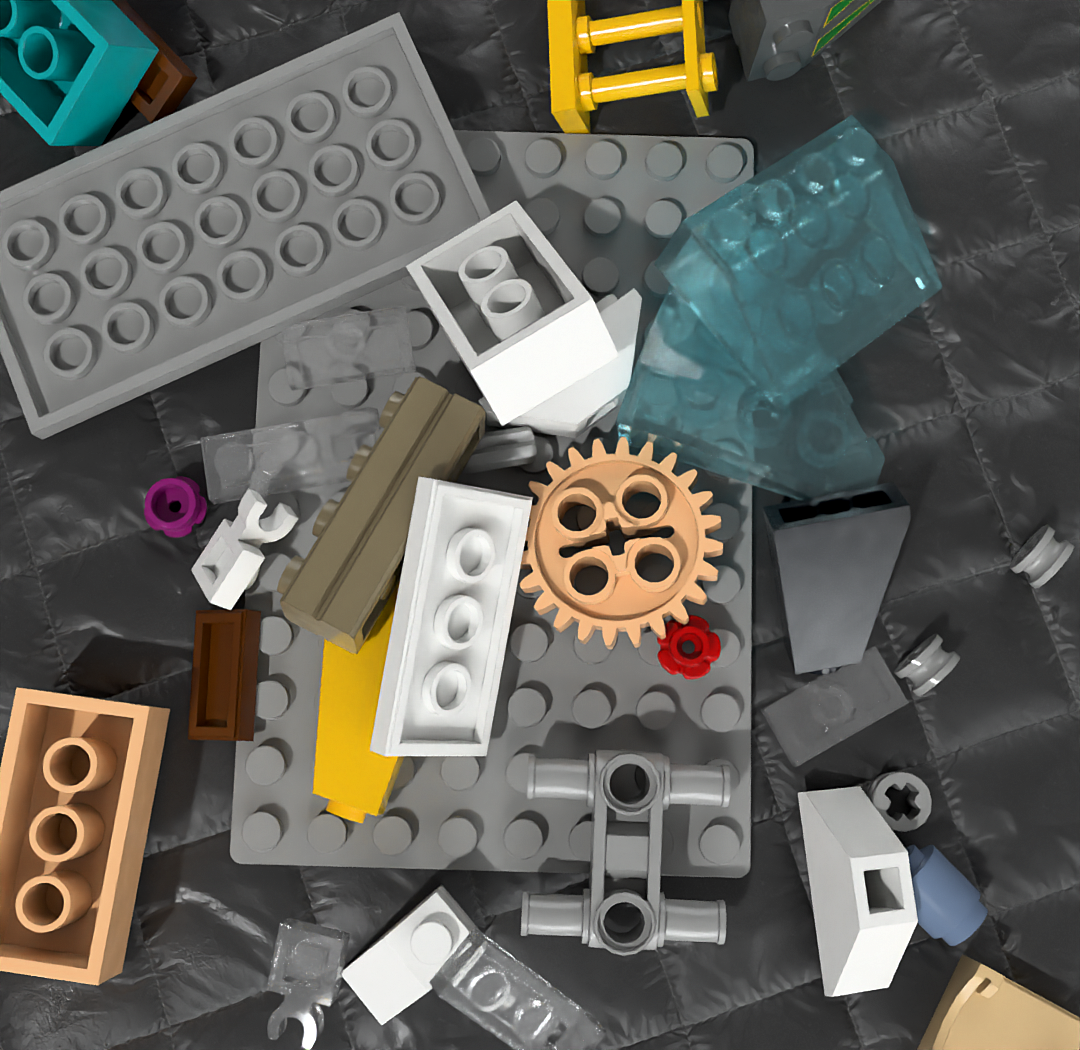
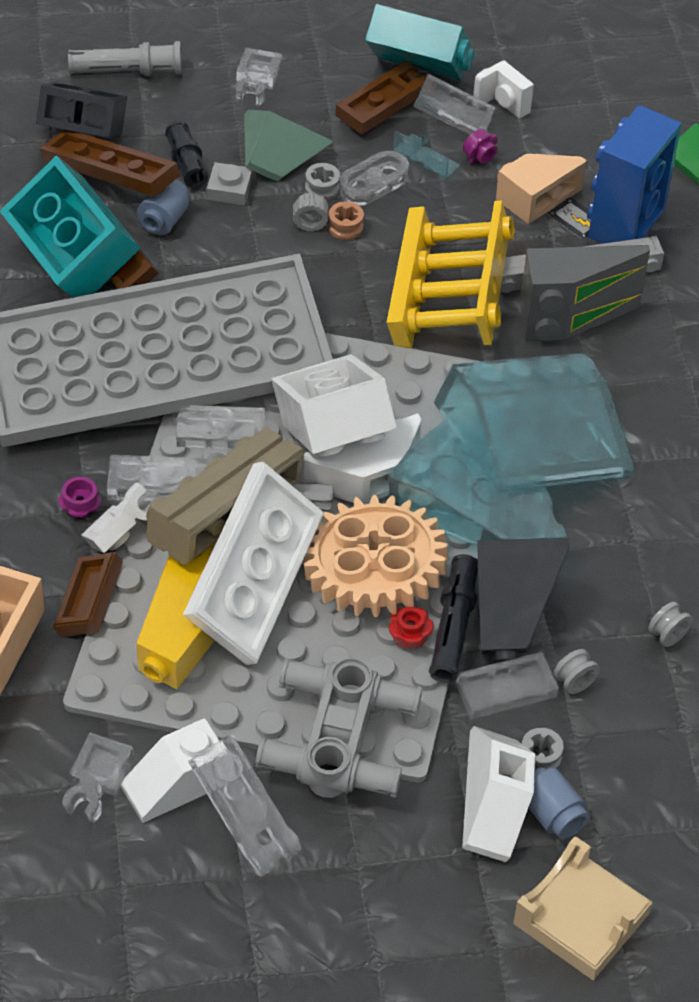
camera: 10 degrees right, 30 degrees down
(747, 622) = (457, 602): none -> black pin

